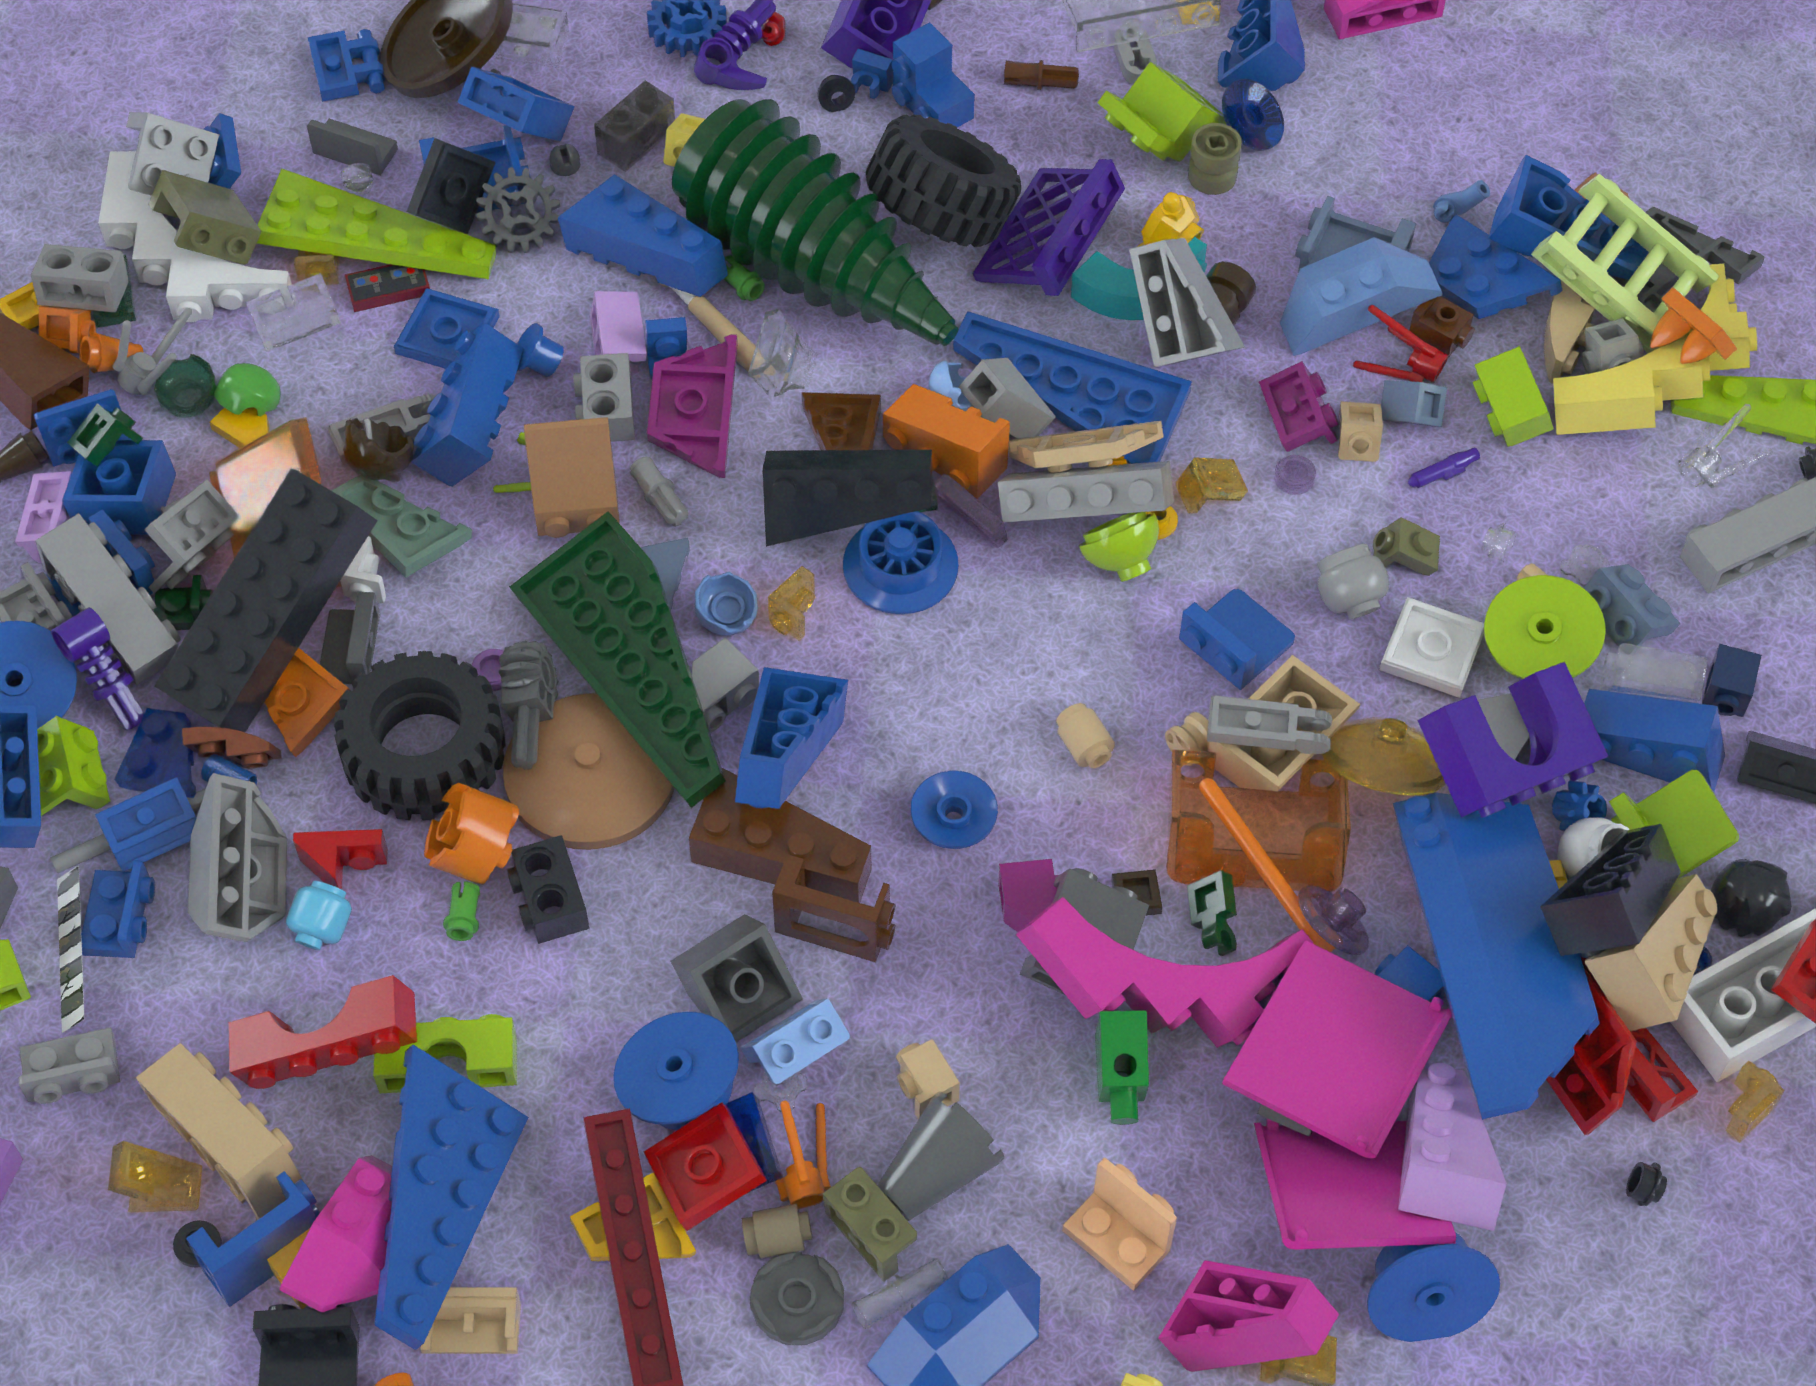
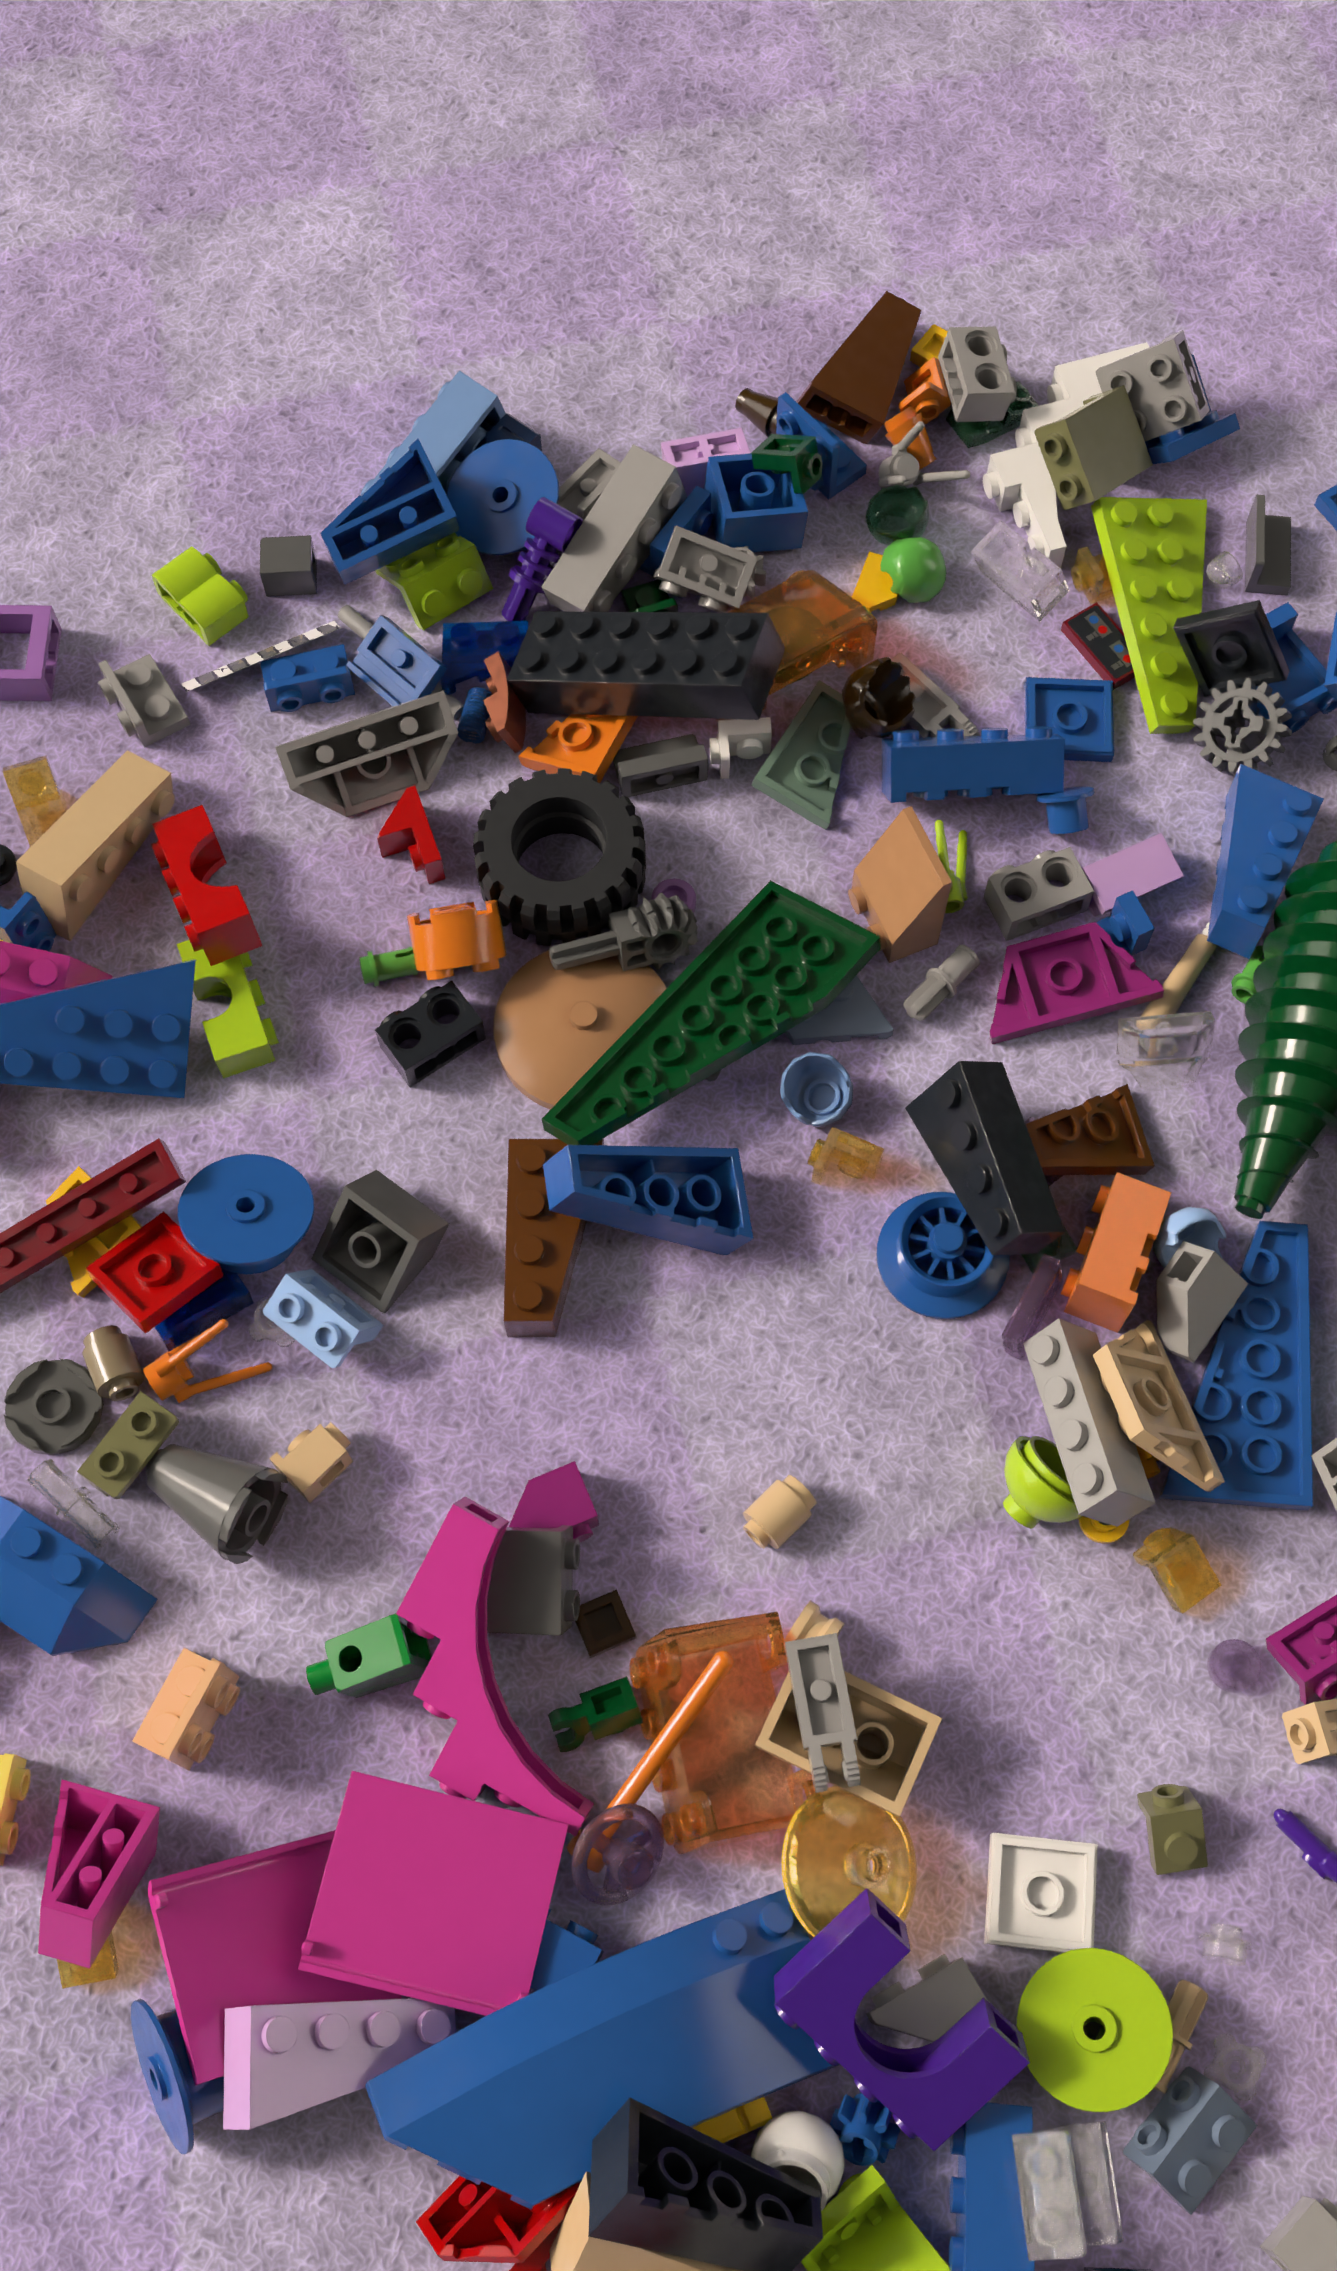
camera: 75 degrees right, 10 degrees up
(319, 915) = (345, 842): medium azure head -> none
(724, 682) = (715, 1113): light grey slope -> none
(793, 897) = (465, 1261): reddish brown panel -> none
(956, 793) = (637, 1374): blue dish -> none
(1235, 636) = (971, 1651): blue bracket -> none
(1352, 581) = (1088, 1770): light grey piece -> none

